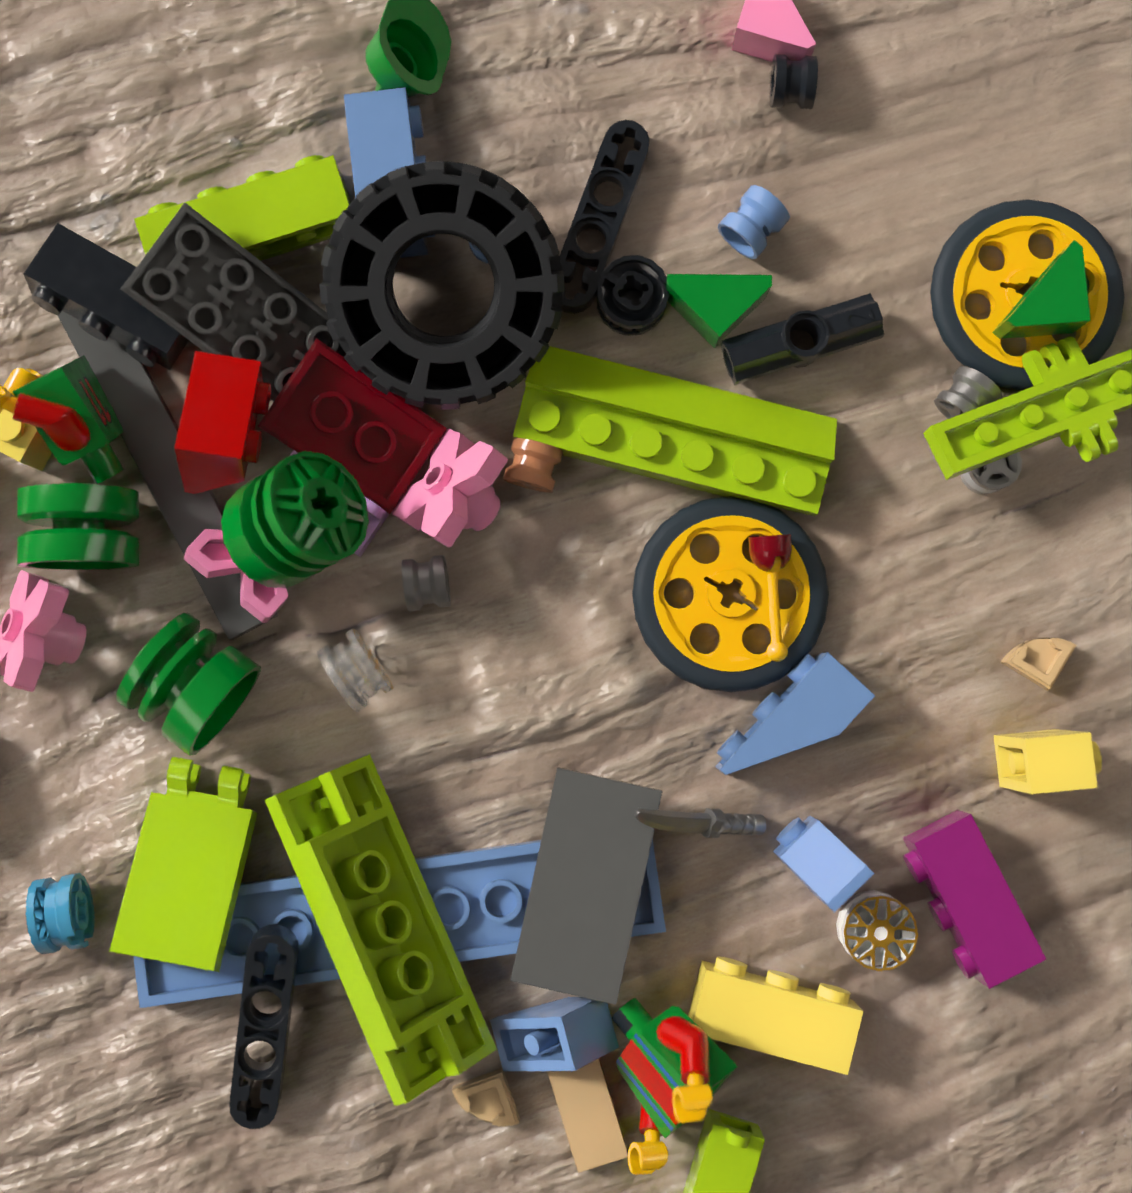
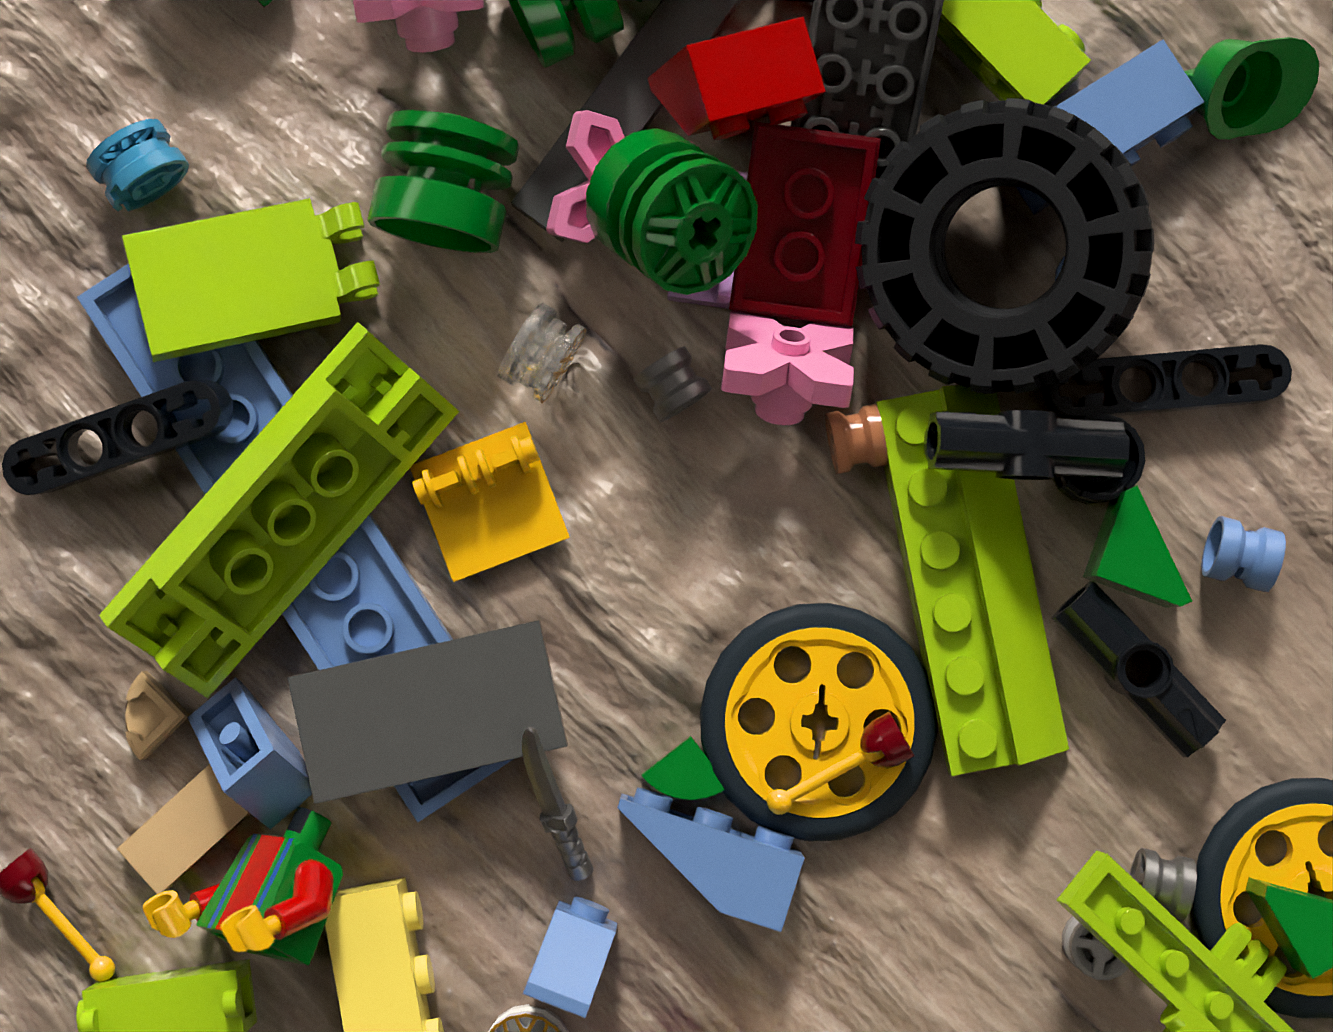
camera: 65 degrees right, 0 degrees up
(448, 763) = (489, 501): none -> yellow hinge
(599, 340) = (1026, 445): none -> black piece
(722, 712) = (684, 773): none -> green tile

